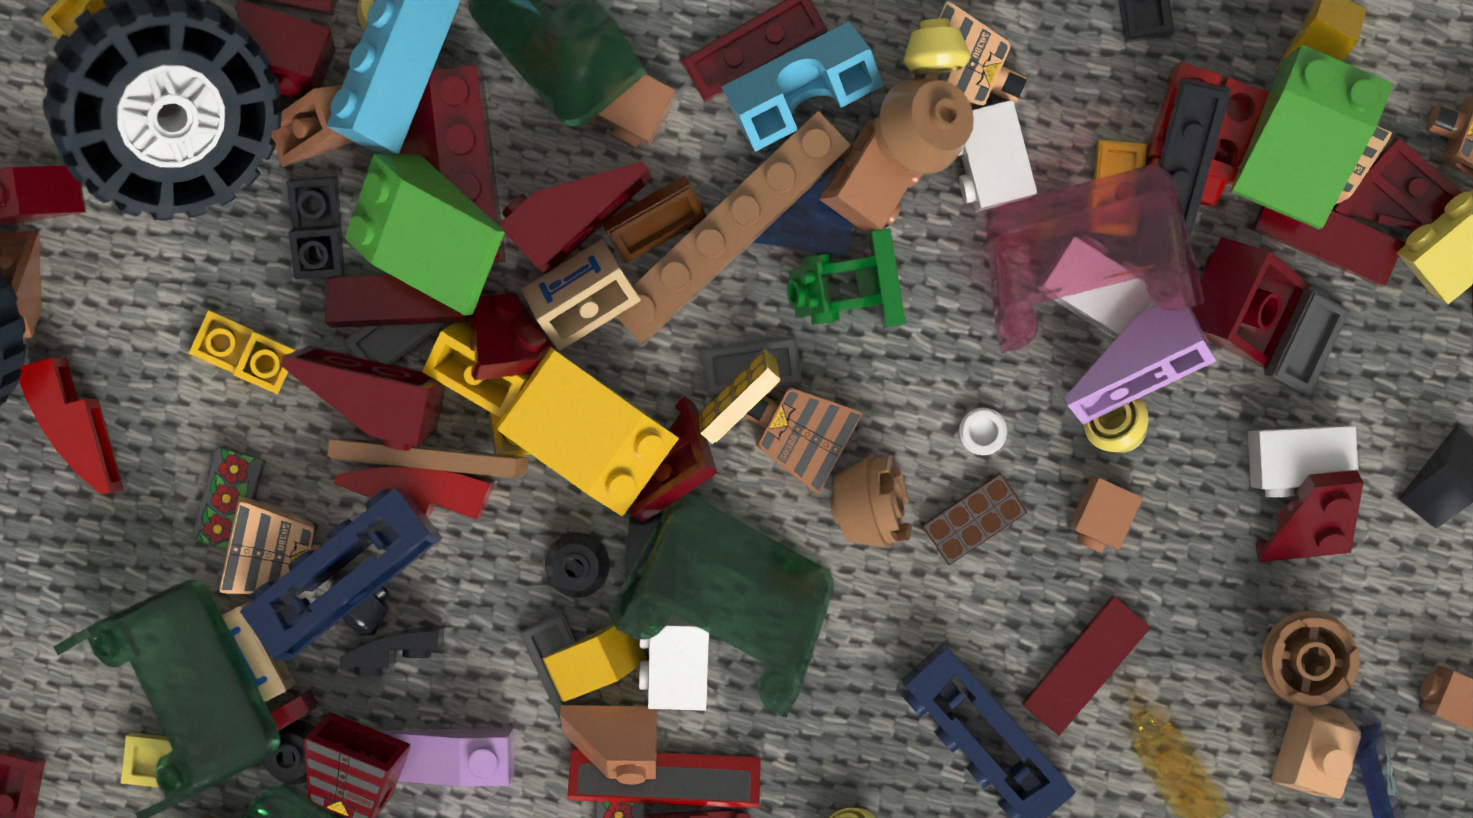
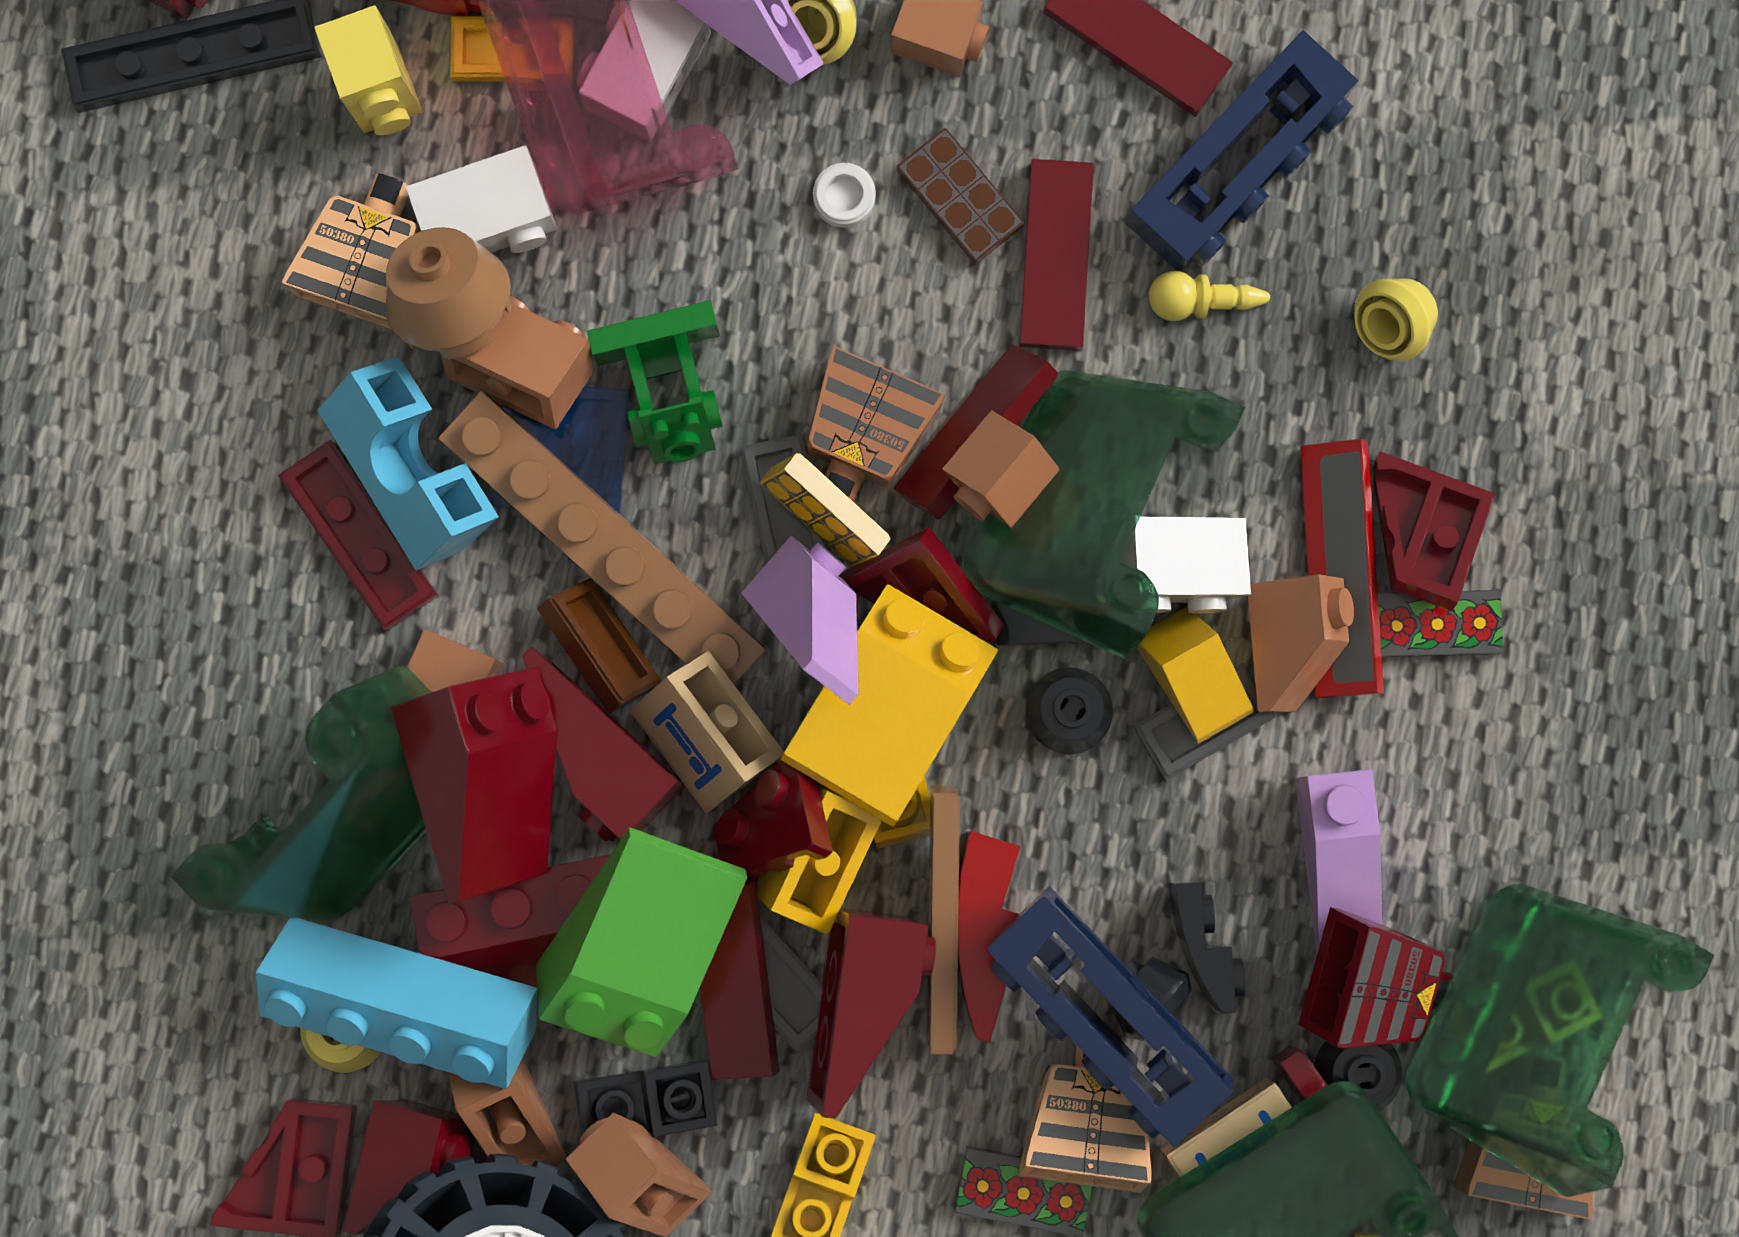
camera: 95 degrees left, 5 degrees down
(260, 215) = (636, 1176): none -> nougat slope
(550, 125) = (483, 778): none -> dark red slope
(658, 379) = (811, 613): none -> lavender slope
(755, 529) = (999, 470): none -> nougat brick
(791, 514) = (1008, 390): none -> dark red tile
(871, 503) = (950, 326): medium nougat cone -> none
(882, 676) = (1177, 296): none -> light yellow bar
(923, 587) = (1056, 254): none -> dark red tile
(936, 48) = (345, 286): light yellow cone -> none
(1104, 78) = (369, 71): none -> light yellow brick

